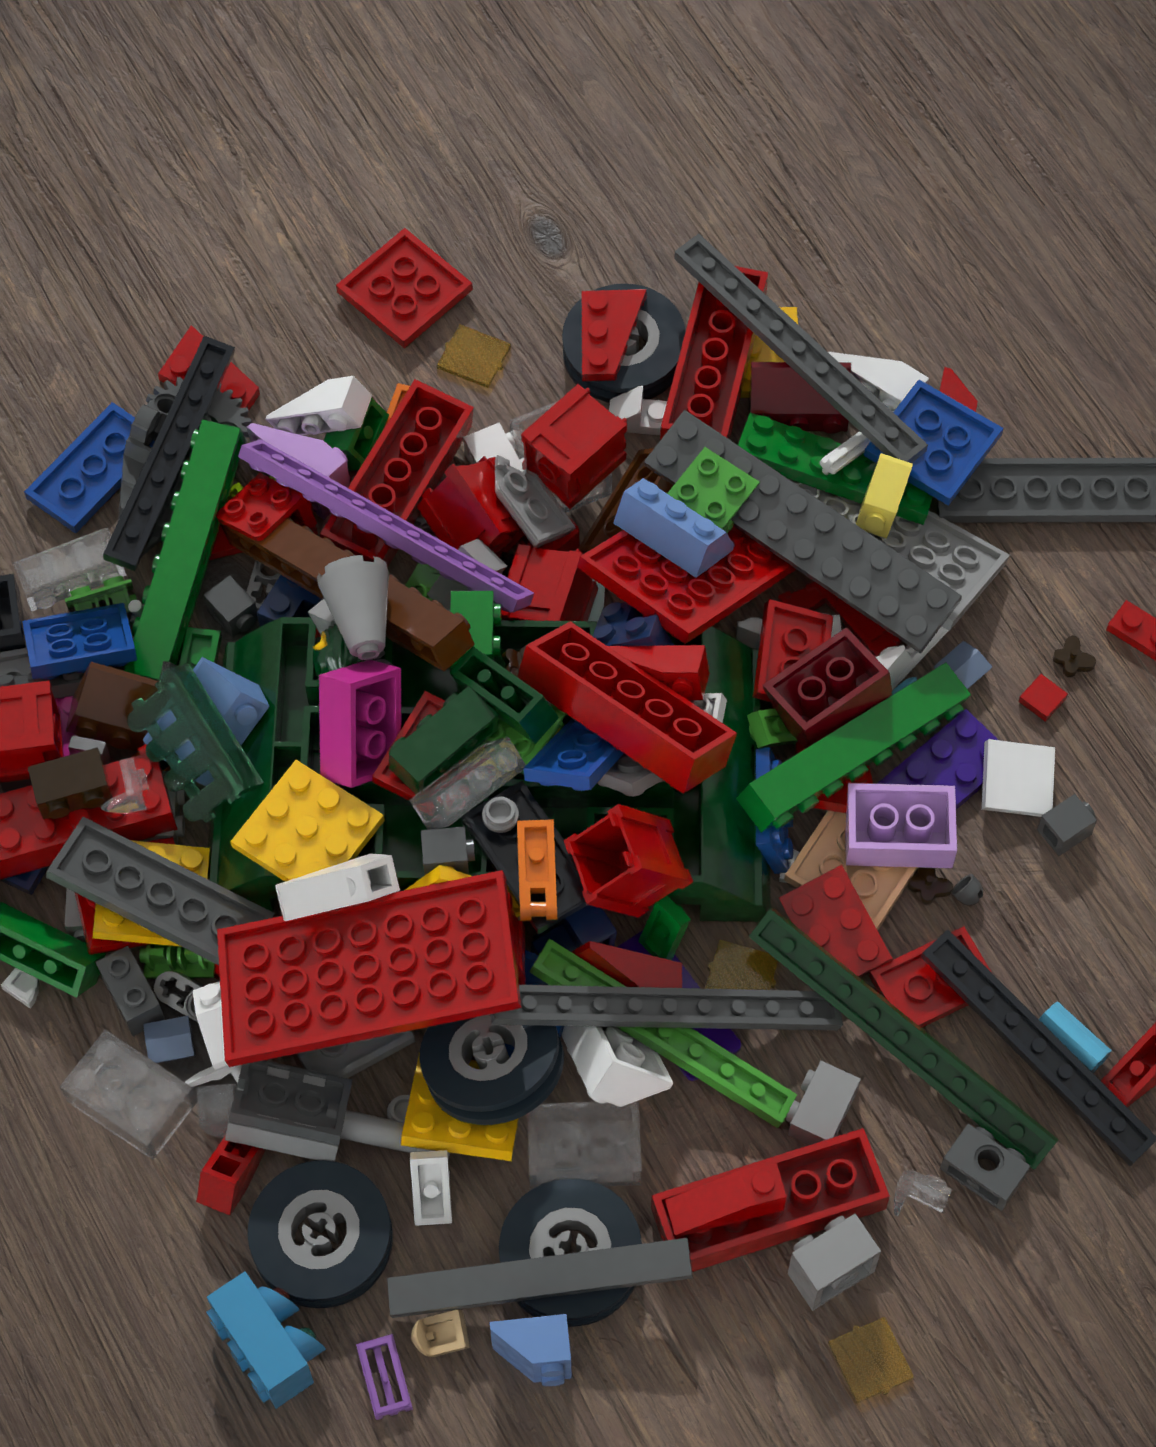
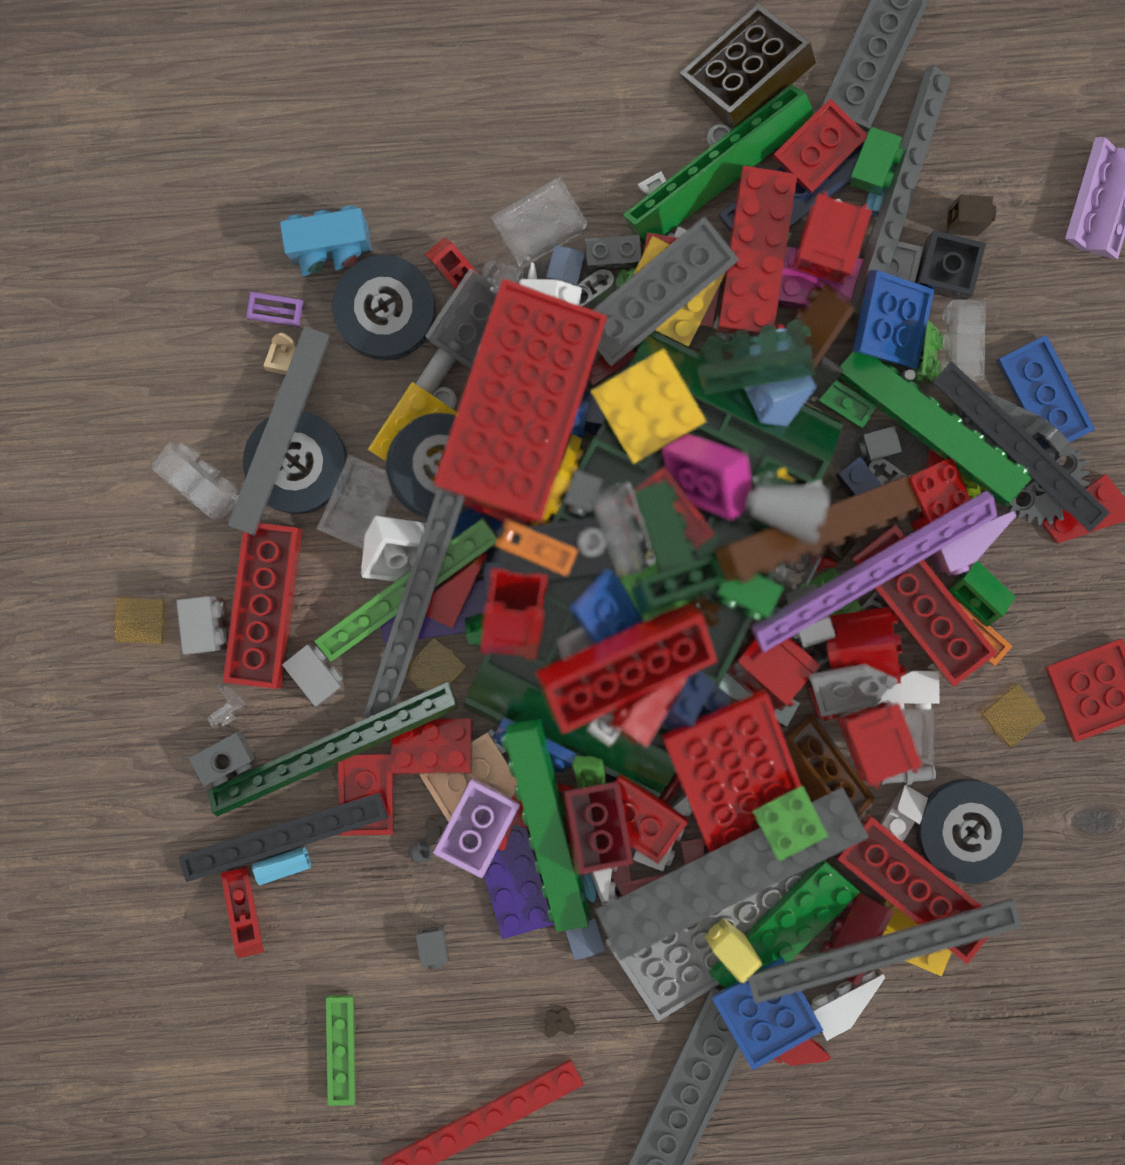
camera: 115 degrees right, 25 degrees up
(70, 783) = (767, 261): dark brown brick -> none
(81, 744) = (795, 289): flat silver tile -> none
(135, 782) = (745, 304): clear plate -> none
(326, 408) = (1009, 581): white slope -> none
(338, 886) = (587, 407): white slope -> none
(431, 1187) = (379, 392): white slope -> none
(535, 1347) = (238, 407): medium blue slope -> none
(606, 329) = (982, 821): red wing -> none
(653, 1354) = (196, 480): none -> clear brick
(671, 528) = (768, 776): medium blue slope -> none
(728, 1200) = (265, 572): red slope -> none
(844, 454) = (789, 949): white axle -> none
(1018, 778) = (481, 931): white tile -> none
(1043, 697) = (538, 983): red tile -> none

